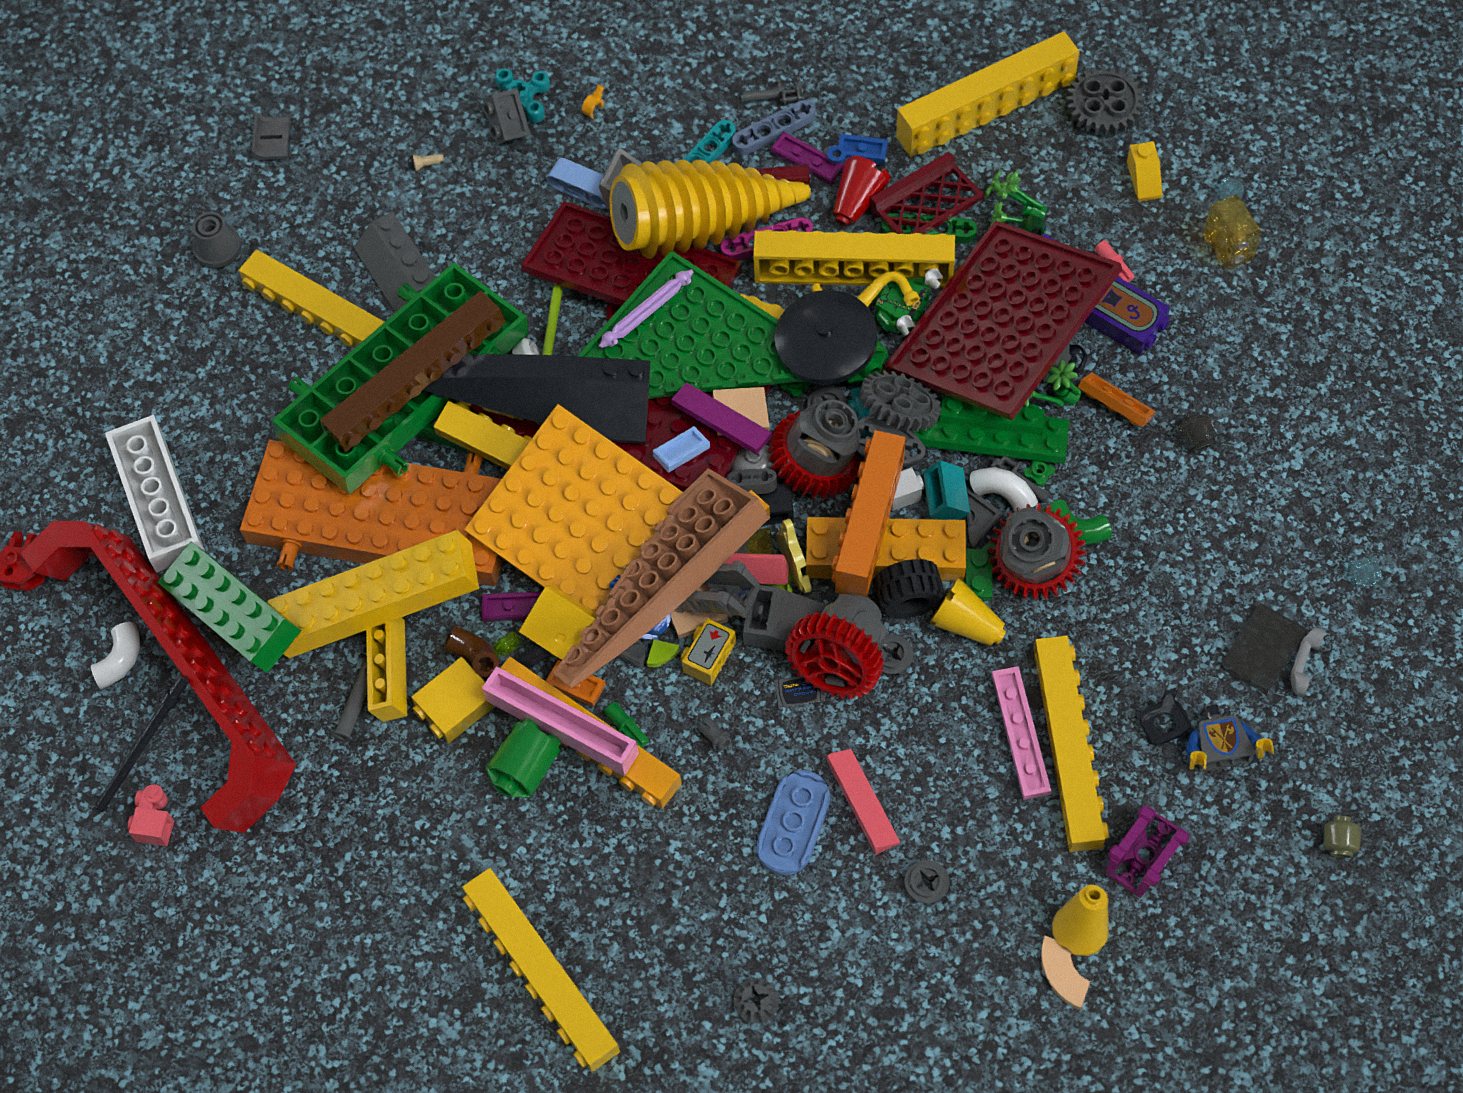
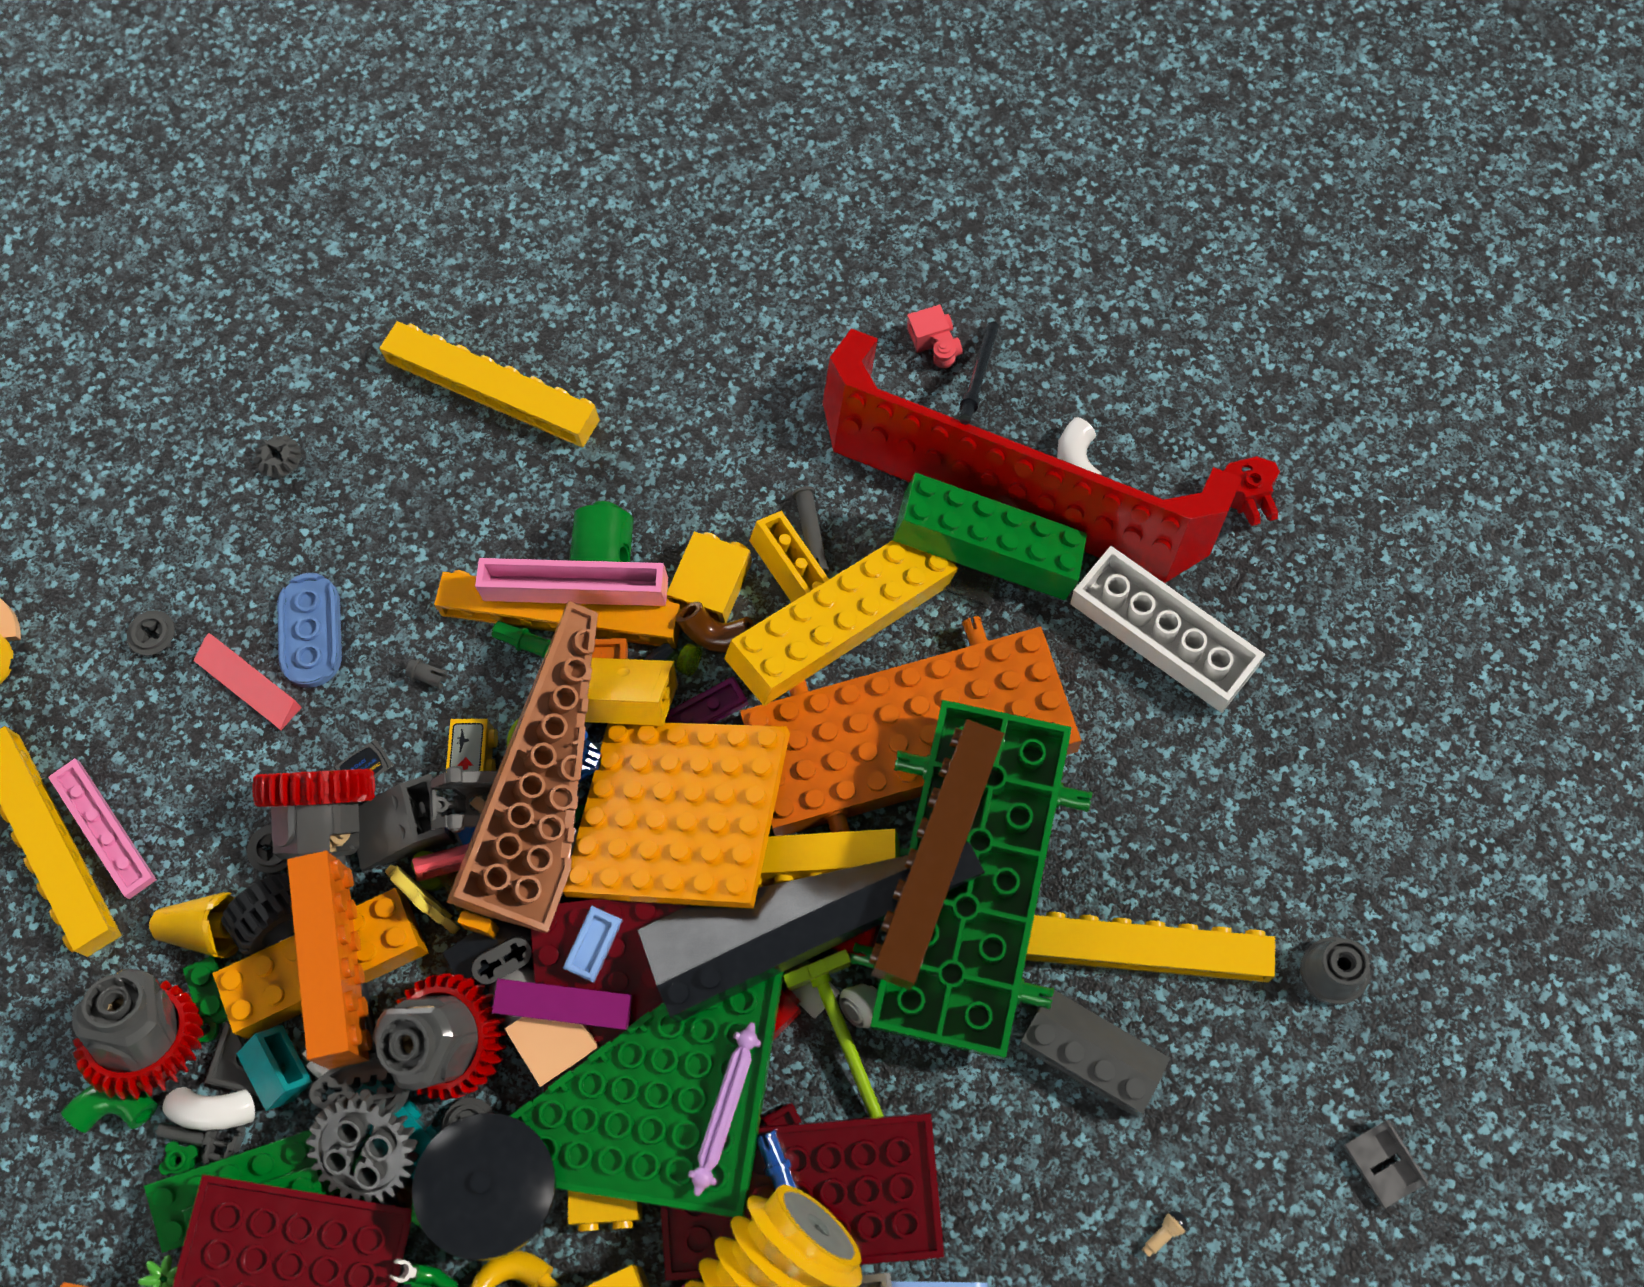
camera: 155 degrees right, 5 degrees up
(635, 274) = (776, 1165): none -> blue pin

